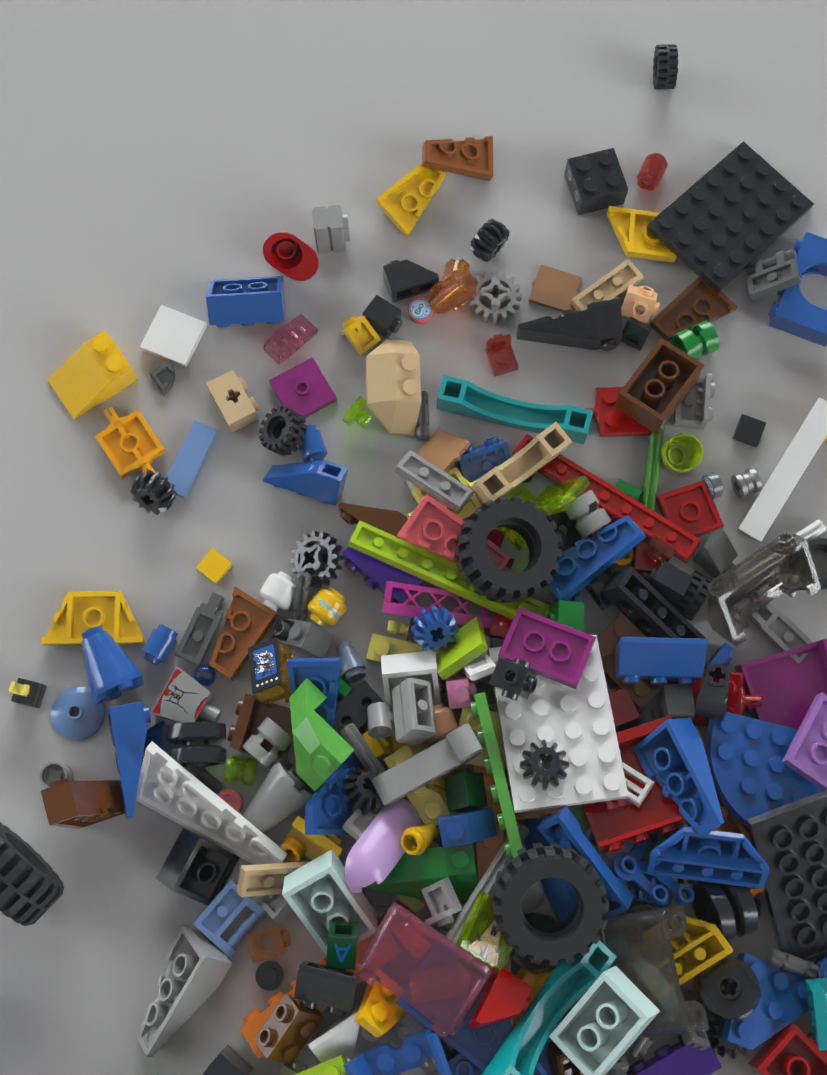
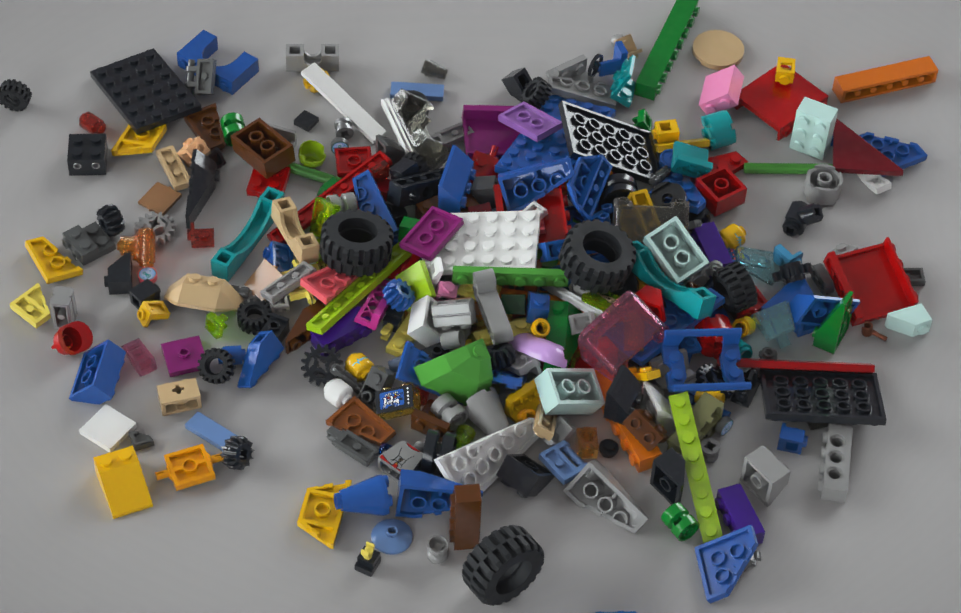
camera: 80 degrees left, 25 degrees down
(159, 645) = (355, 470): blue brick -> none
(214, 566) = (305, 432): yellow tile -> none
(337, 191) = (32, 306): none -> light yellow wing
(342, 945) = (597, 383): dark green brick -> none
(369, 493) = (278, 325): none -> black brick
(376, 442) = (250, 308): none -> black tyre
(452, 226) = (87, 242): none -> dark grey plate
(465, 158) = (34, 223): dark orange wing -> none
(514, 678) = (449, 248): black brick -> none
(532, 761) = (510, 241): black gear -> none
(713, 695) = (486, 160): black piece -> none

